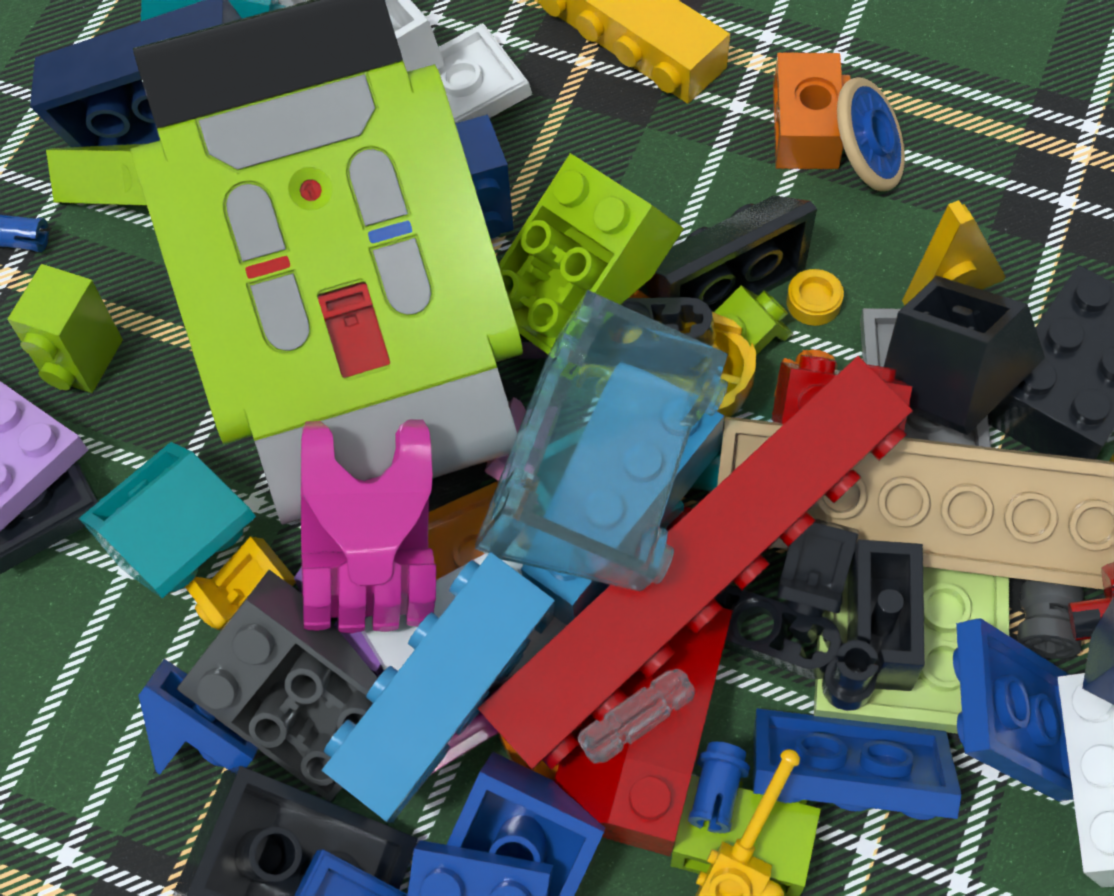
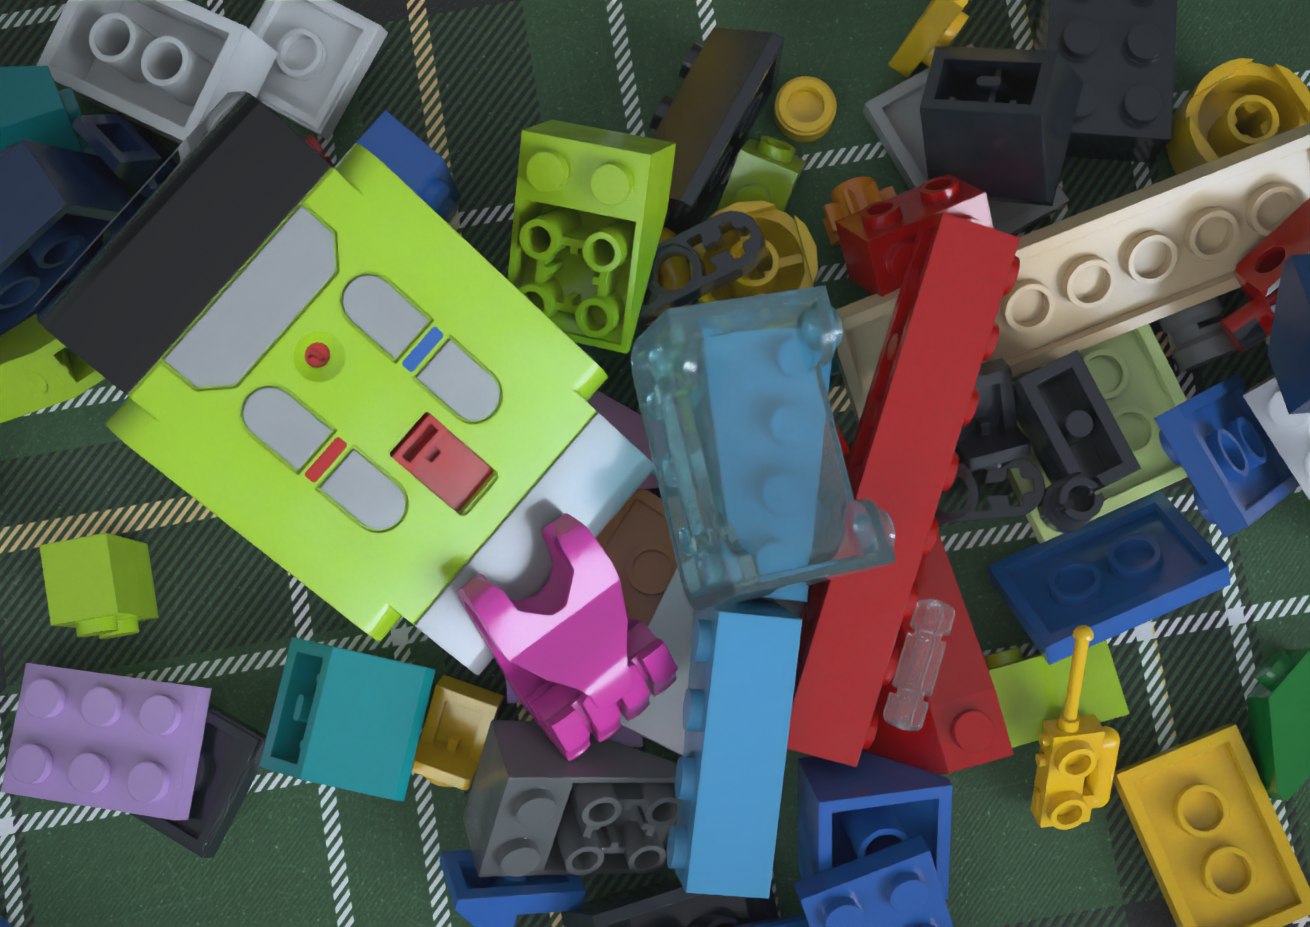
camera: 30 degrees left, 20 degrees up
(718, 786) = (1014, 675): blue pin -> none

